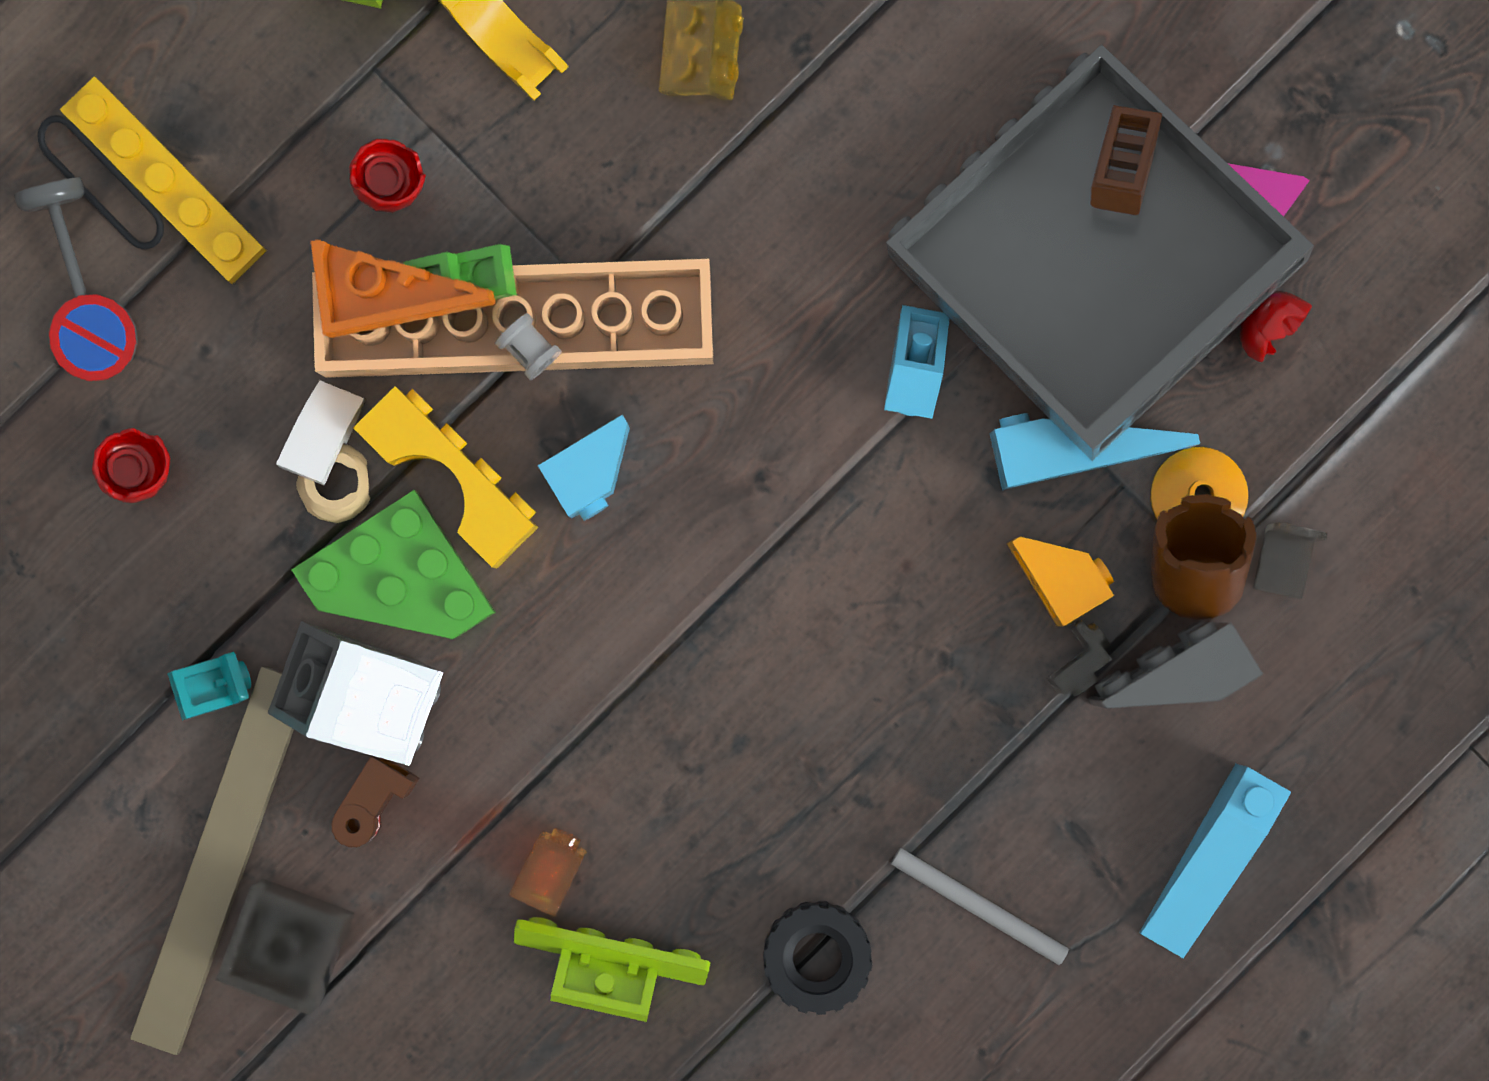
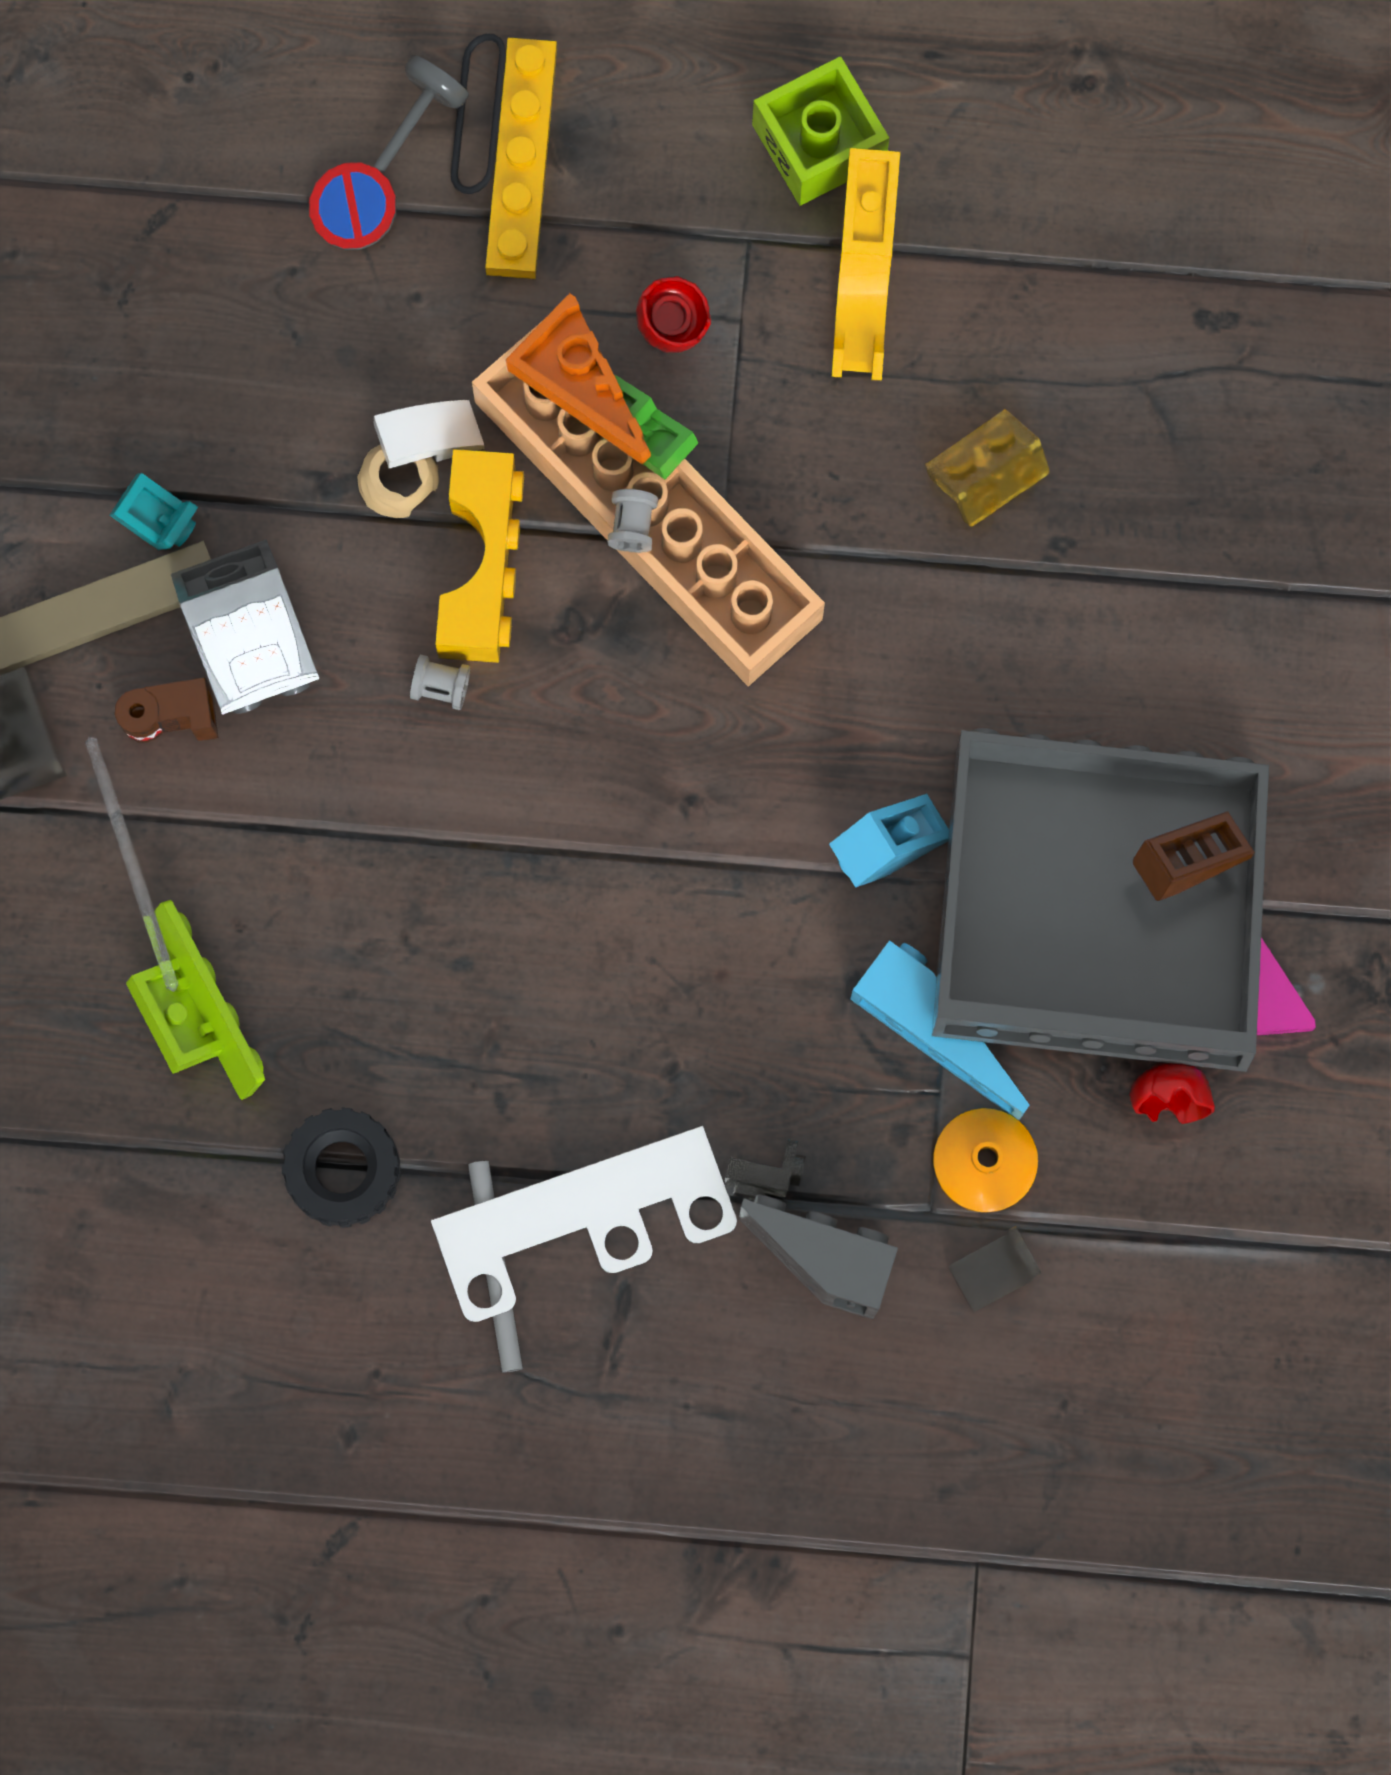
camera: 45 degrees right, 10 degrees down
(131, 465) = (277, 313): red hair -> none
(397, 574) = (367, 584): bright green plate -> none
(463, 922) = (132, 864): none -> clear axle
(519, 585) = (440, 682): none -> light grey bush
(549, 871) = (230, 892): clear orange slope -> none
(588, 470) = (579, 657): medium azure slope -> none
(988, 798) = (589, 1197): none -> white piece
(1063, 578) = (820, 1102): light orange slope -> none
(1201, 557) = (931, 1189): reddish brown cylinder -> none
(1215, 858) = (697, 1422): medium azure slope -> none

